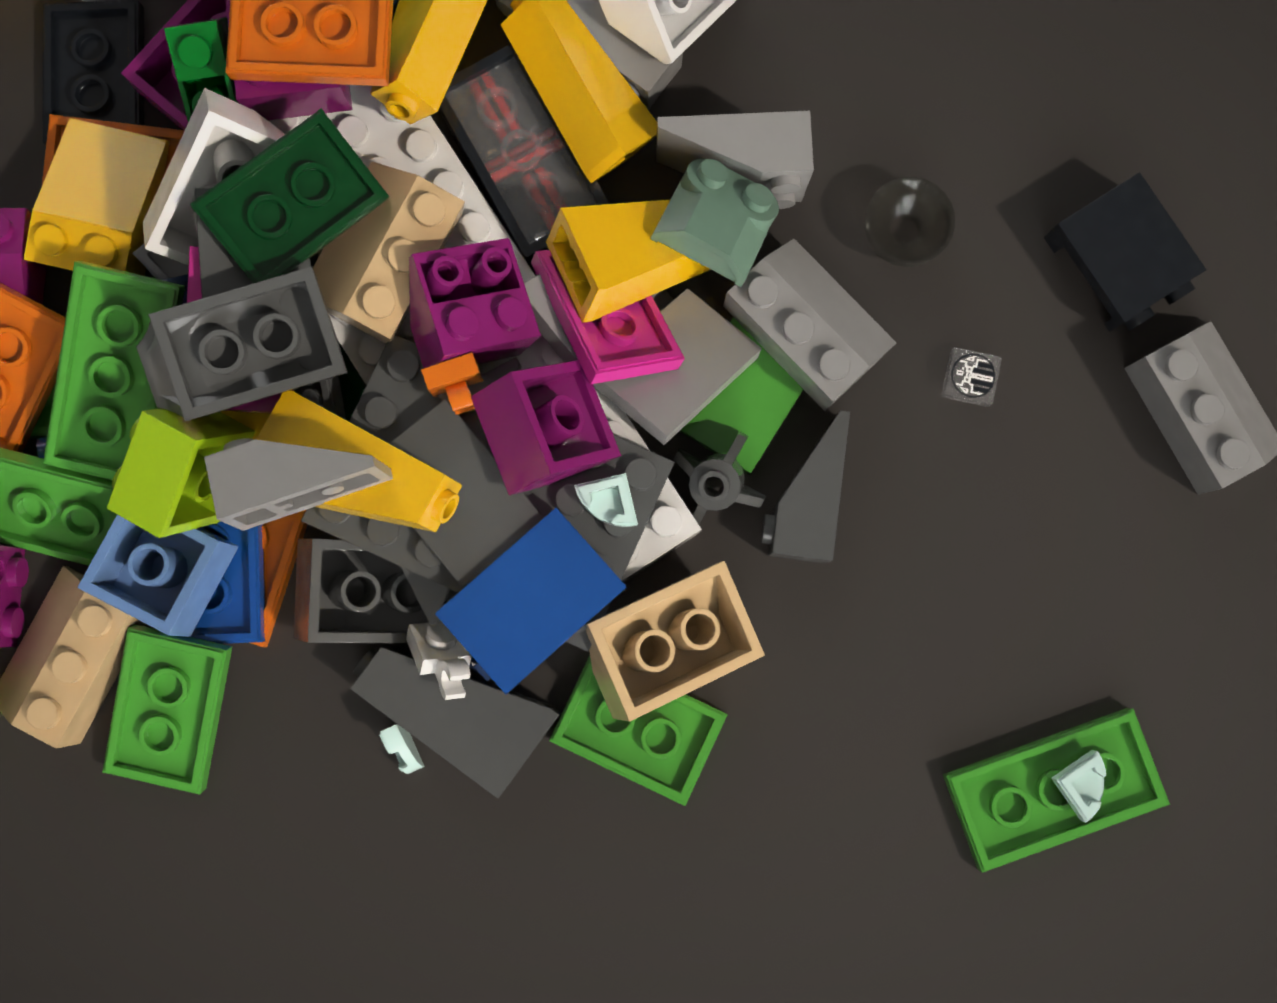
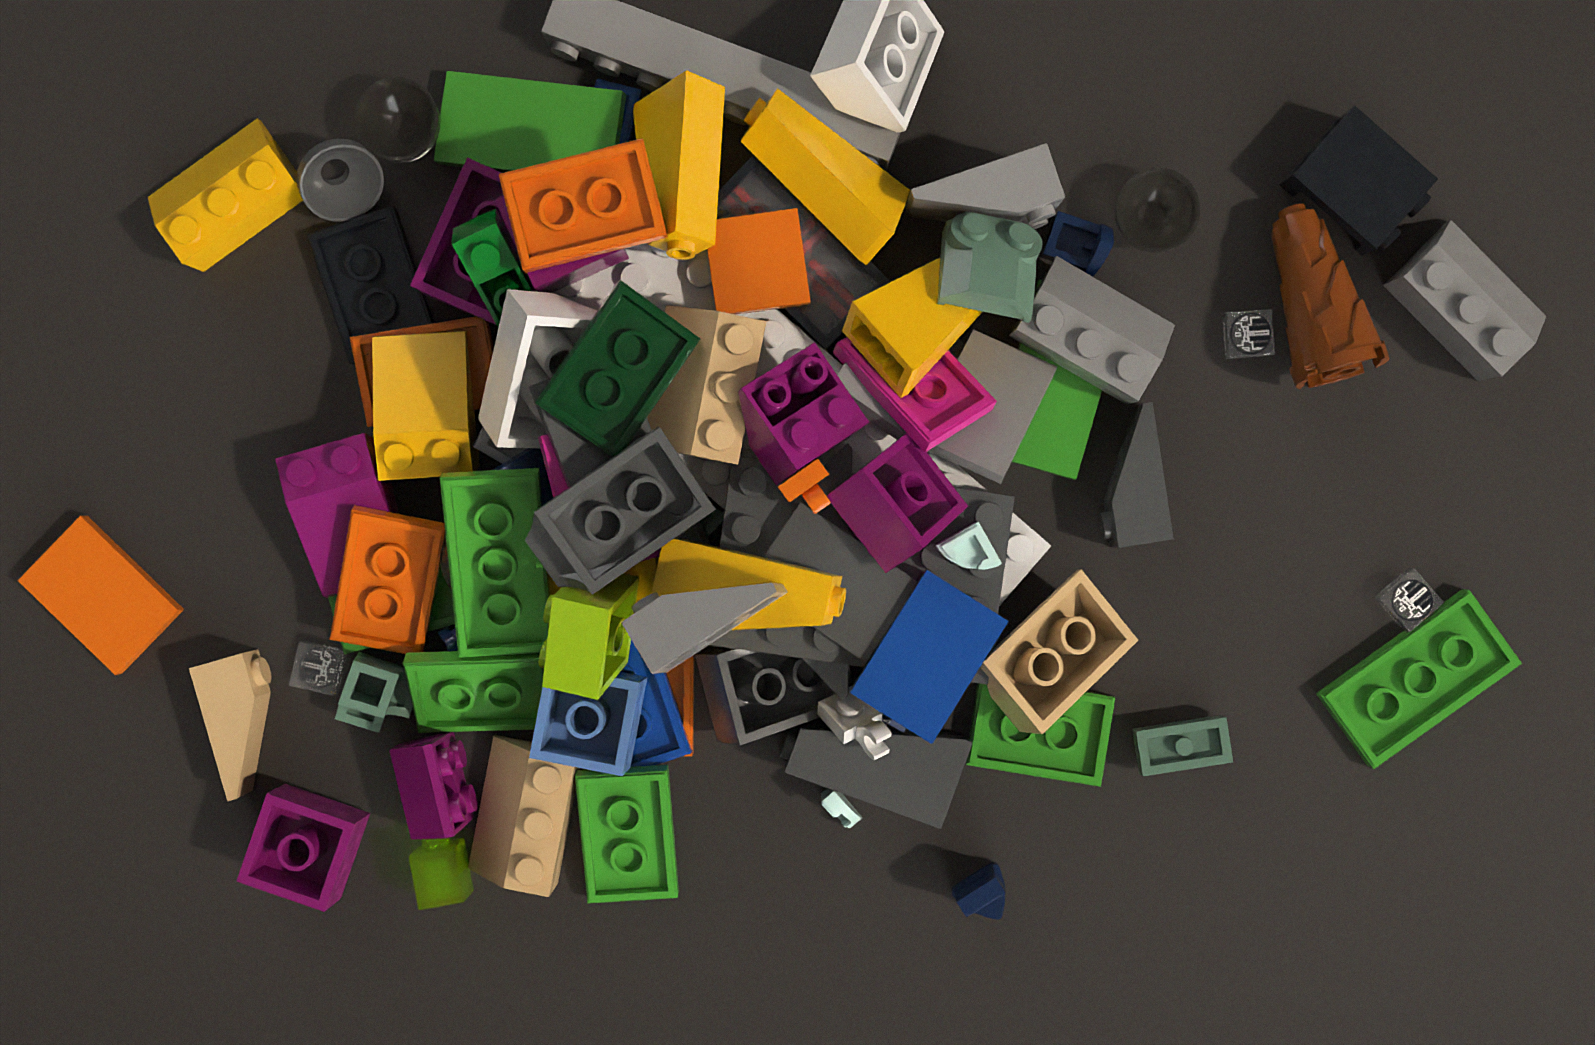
camera: 15 degrees left, 5 degrees up
(481, 148) = (758, 263): none -> orange tile
(525, 885) = (982, 892): none -> dark blue tile
(721, 466) = (1048, 486): dark grey brick -> none
(784, 787) = (1182, 745): none -> sand green plate
(821, 233) = (1078, 242): none -> dark blue tile
(1053, 379) = (1323, 314): none -> dark orange cone
(1067, 701) = (1409, 599): none -> clear tile
(1083, 784) = (1442, 669): light aqua tile -> none

